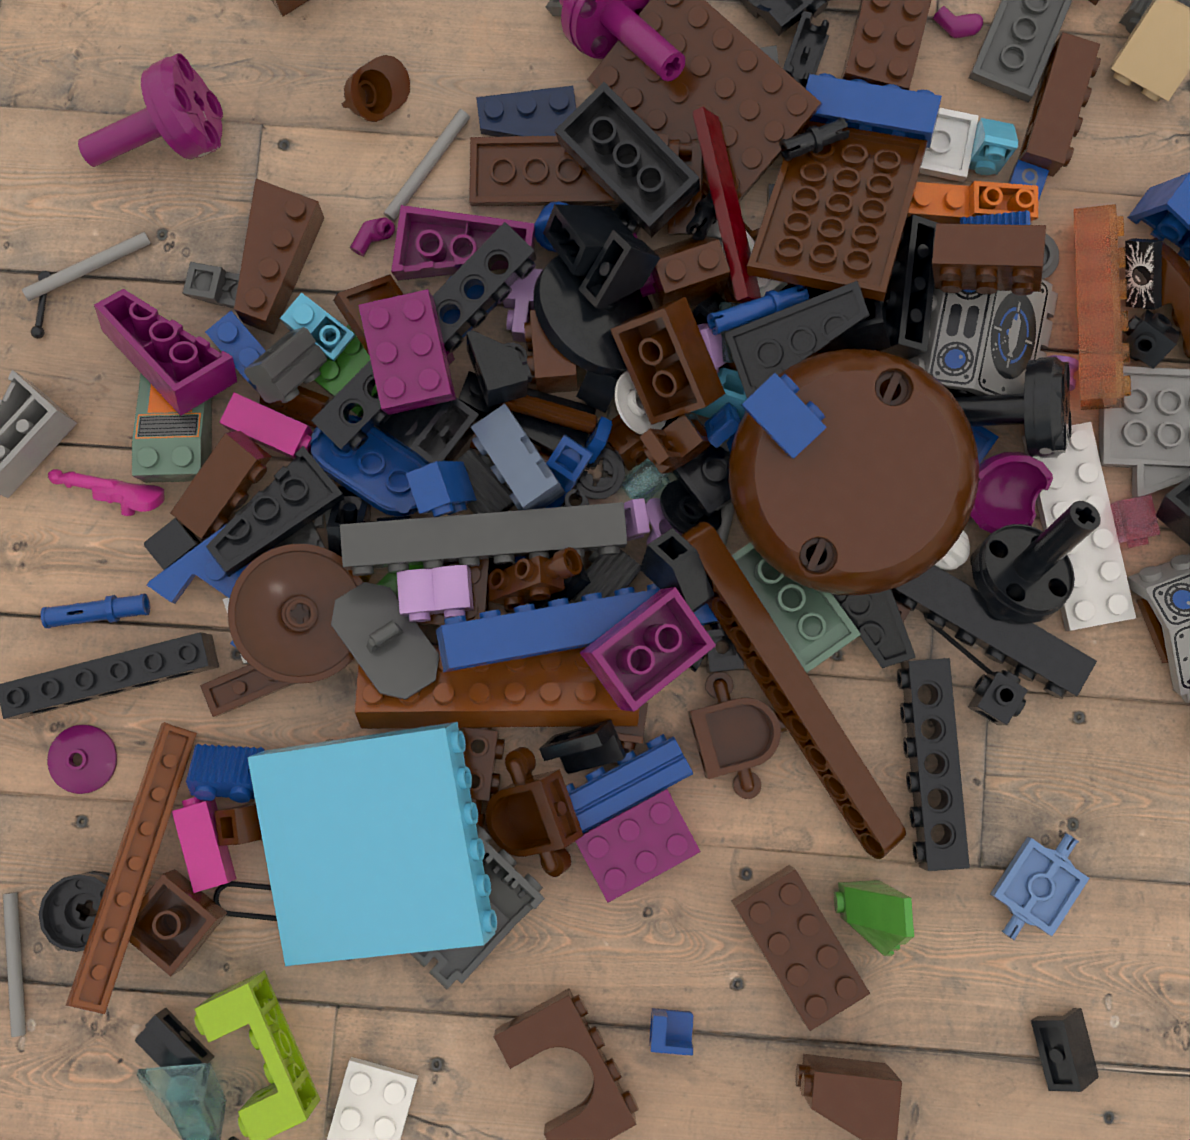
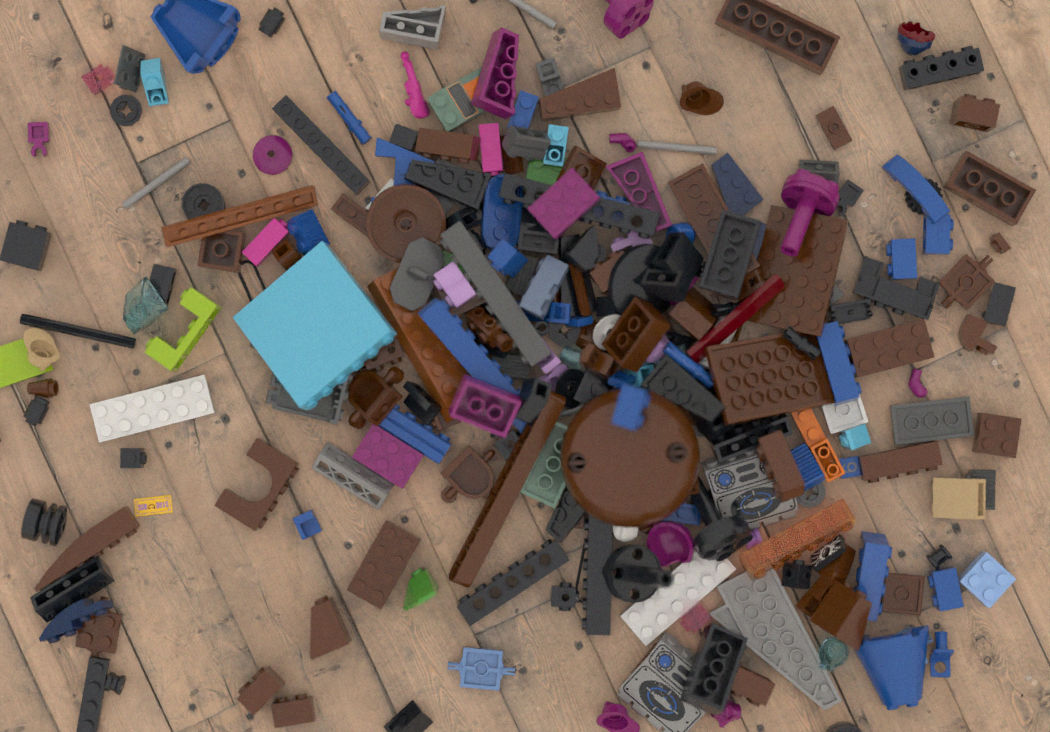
camera: 65 degrees right, 5 degrees up
(633, 911) = (354, 473): none -> light grey fence

